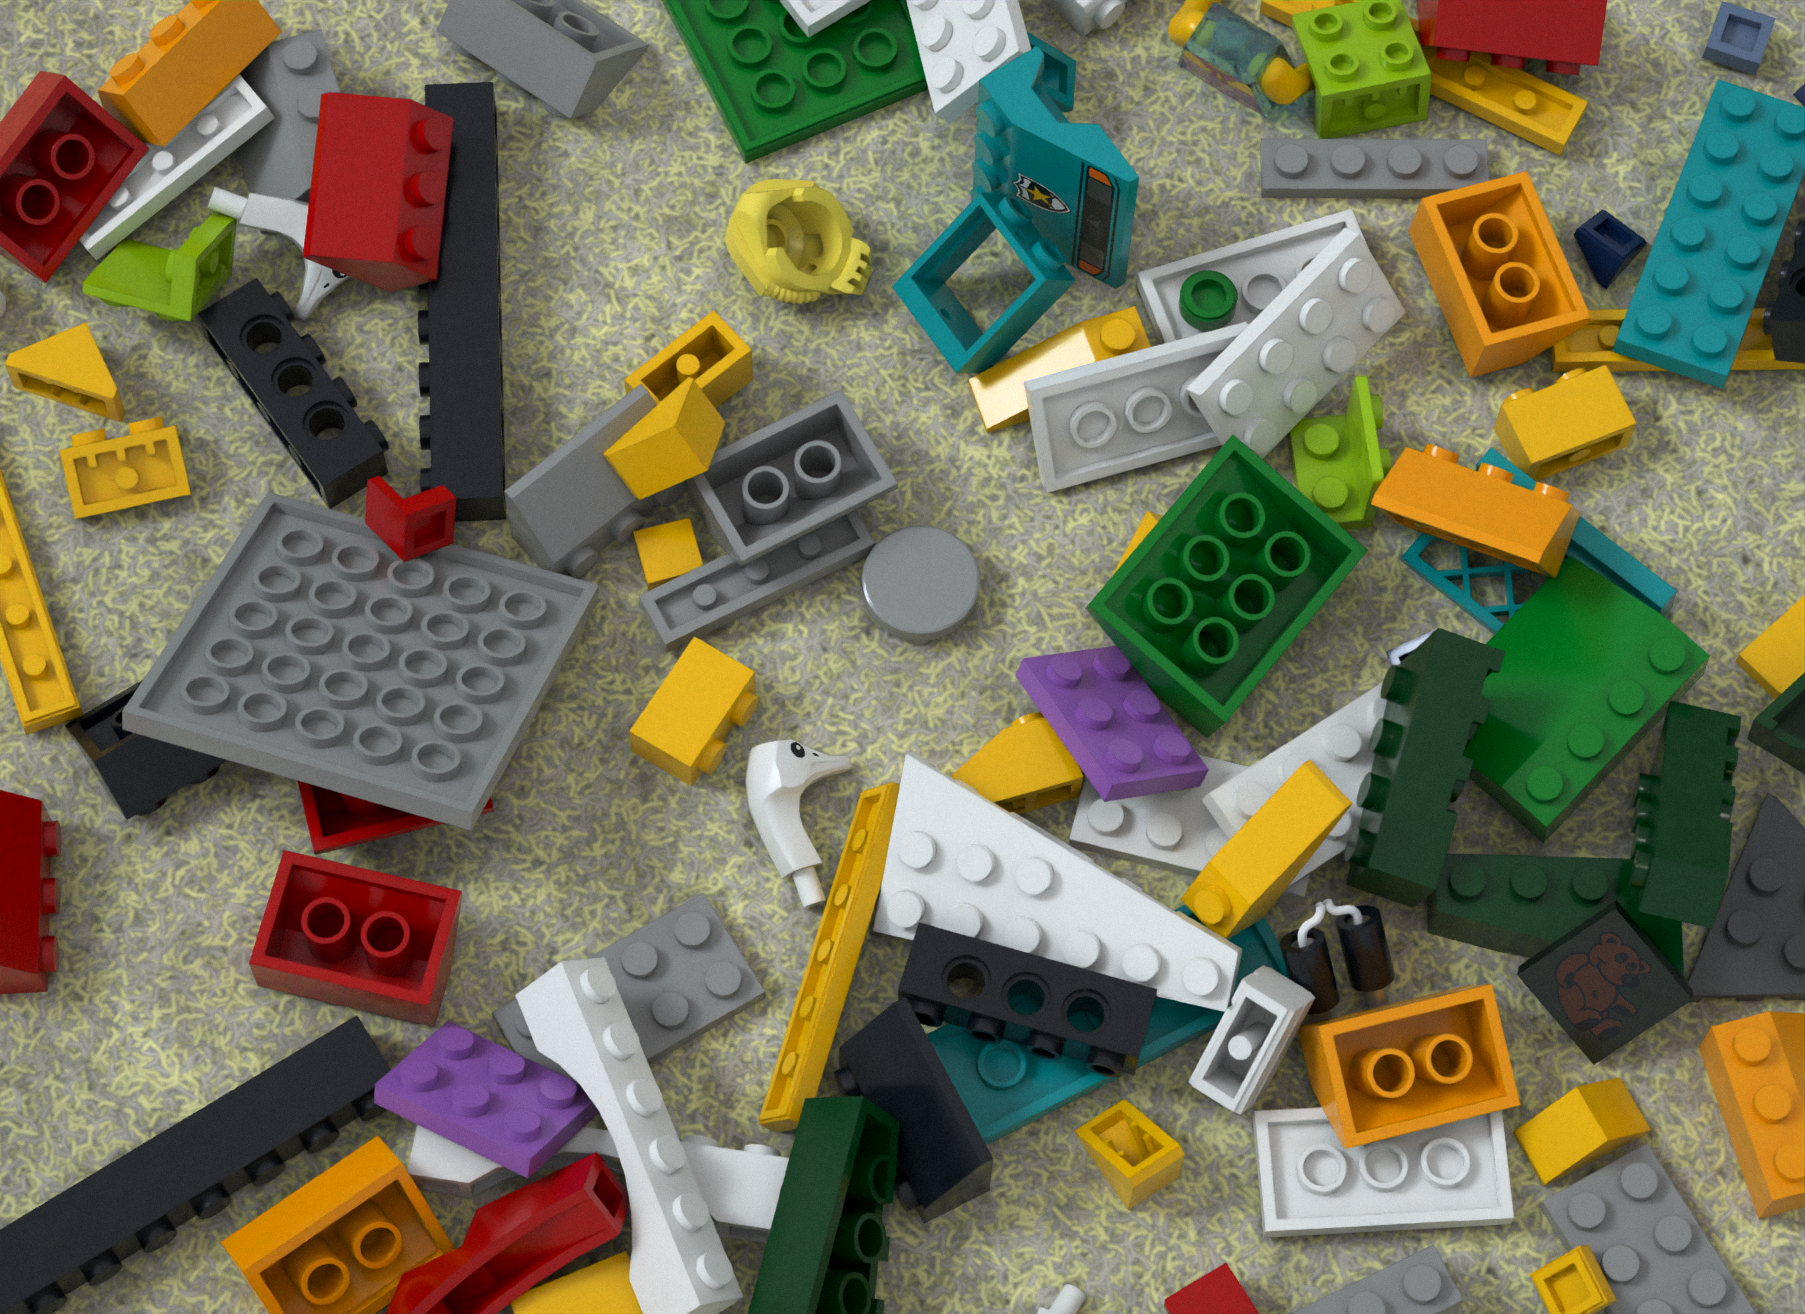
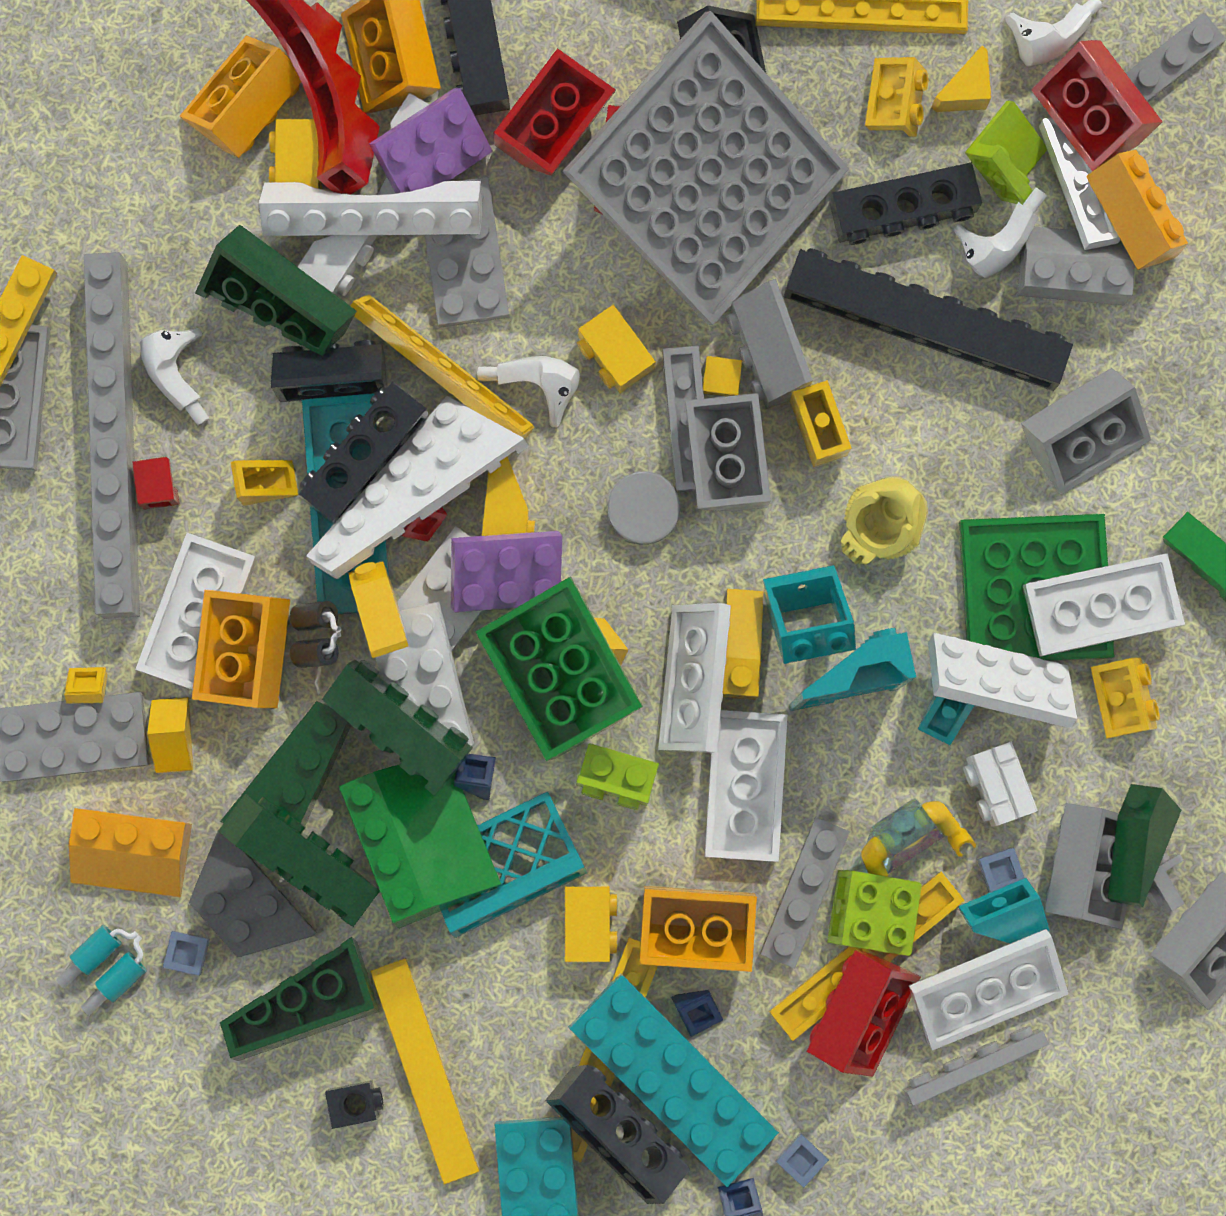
camera: 110 degrees right, 15 degrees up
(378, 189) = (1006, 284): red slope -> none
(413, 523) = (792, 234): red panel -> none
(668, 442) = (773, 389): yellow slope -> none
(1207, 300) = (750, 746): green tile -> none
(1251, 1039) = (288, 566): white brick -> none
(1298, 346) = (689, 777): white plate -> none
(1479, 509) = (540, 832): light orange slope -> none
(1605, 982) = (236, 772): tile -> none

